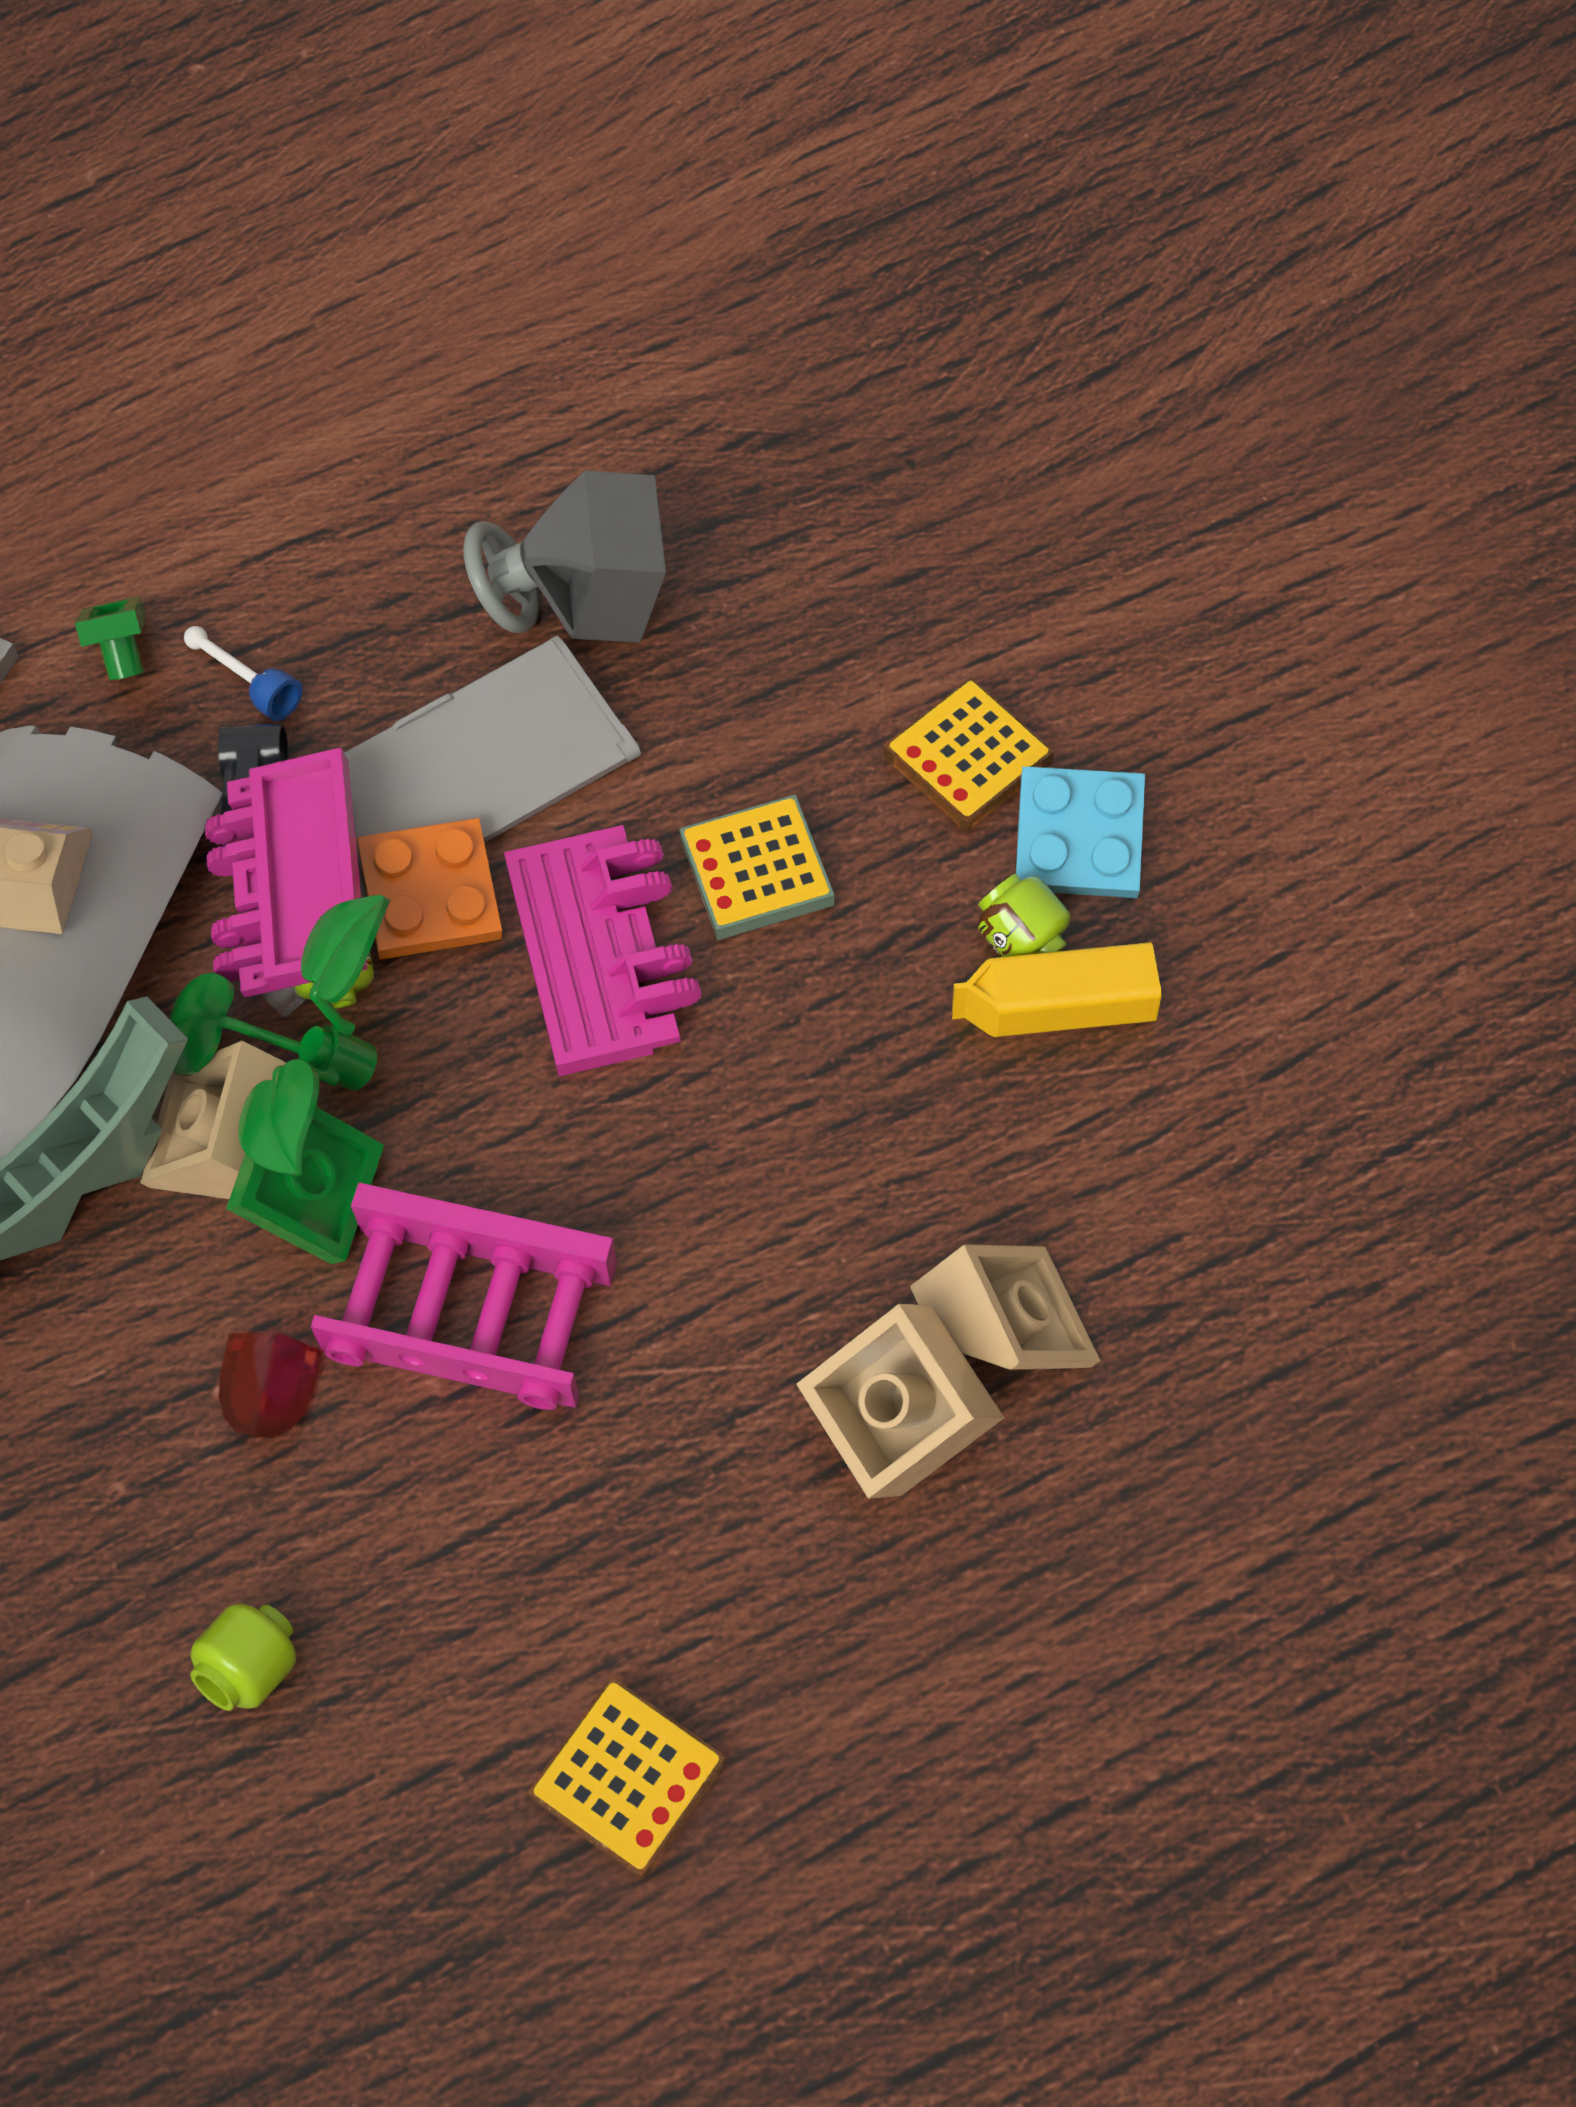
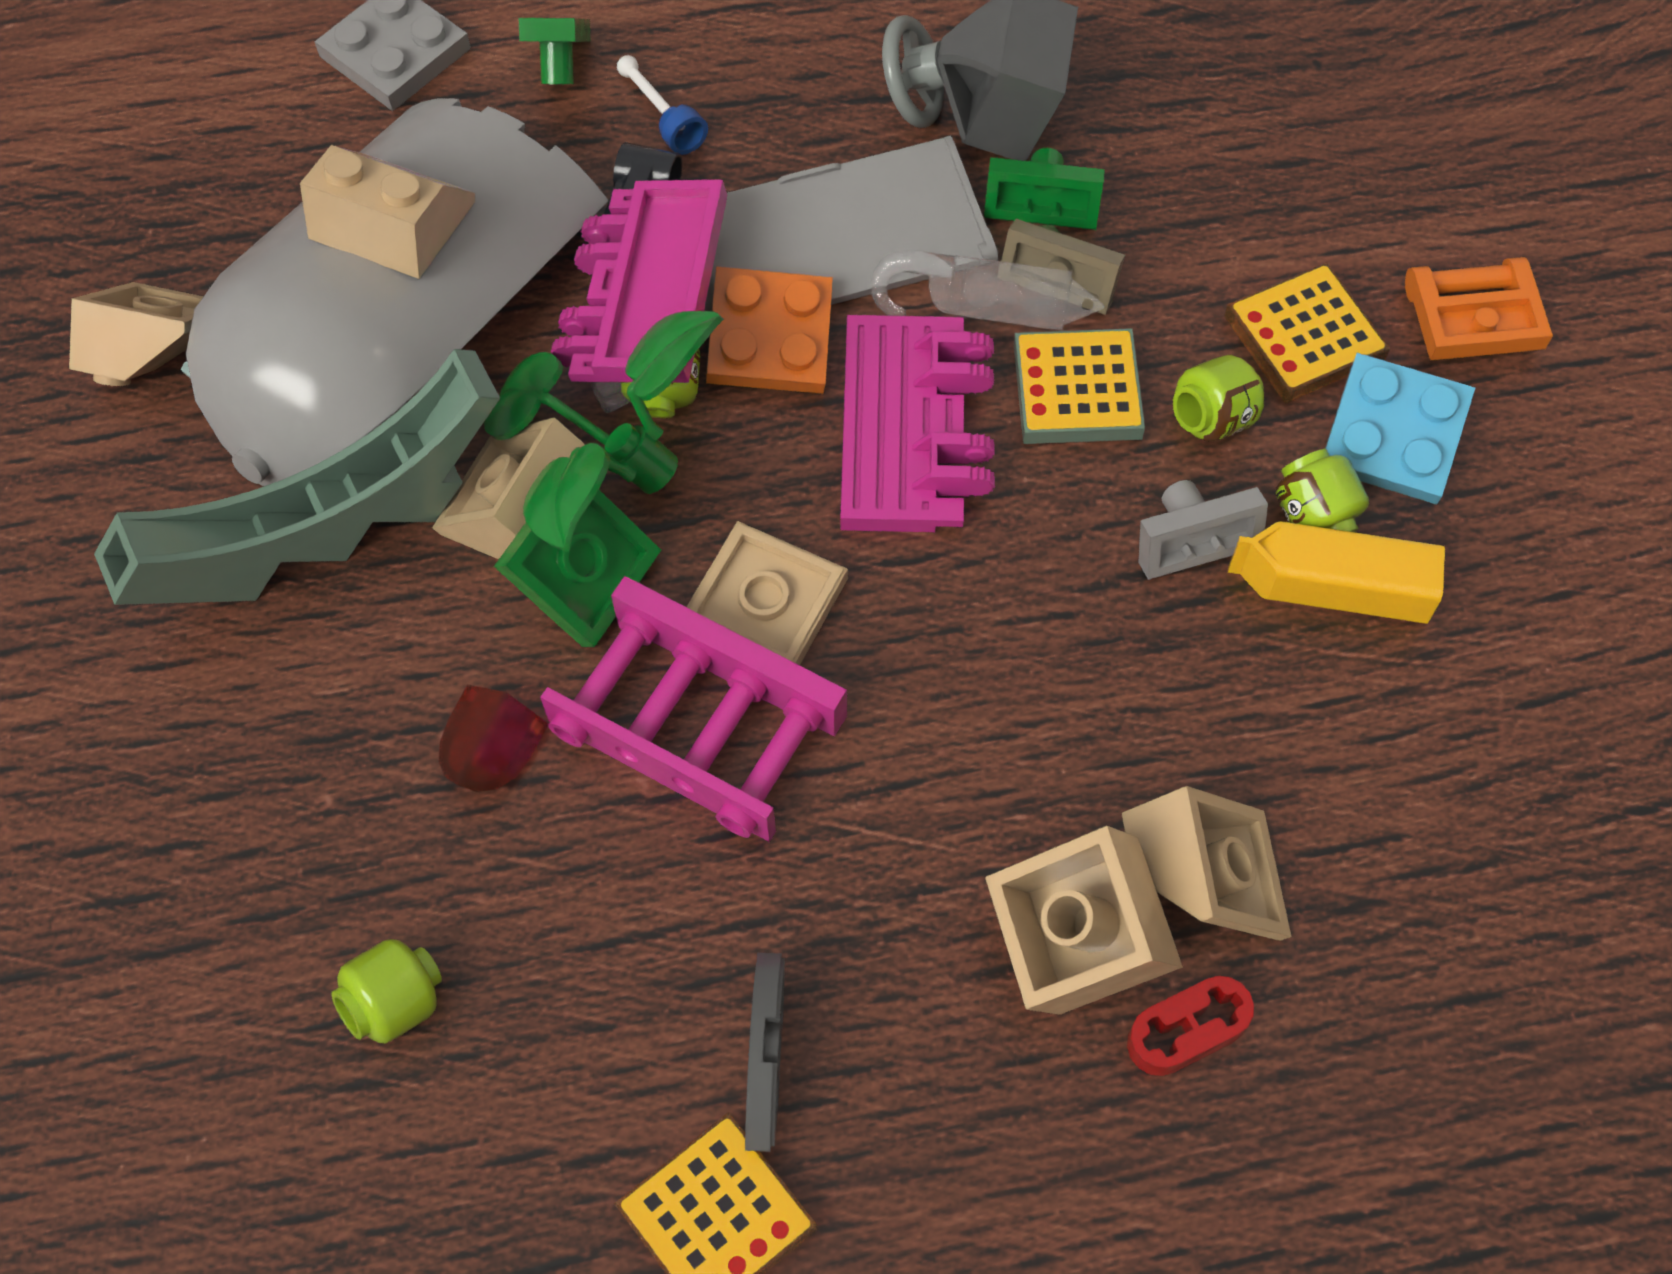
camera: 15 degrees right, 0 degrees up
(504, 1158) = (769, 591): none -> tan tile
(631, 1608) = (765, 1052): none -> dark grey tile
(638, 790) = (988, 289): none -> clear plate
(669, 671) = (1044, 191): none -> green tile
(706, 746) = (1044, 246): none -> dark tan tile
(899, 846) = (1218, 398): none -> lime head
(911, 985) = (1196, 529): none -> light grey tile
(1015, 1460) = (1182, 1011): none -> red beam
(1134, 701) = (1479, 321): none -> orange plate

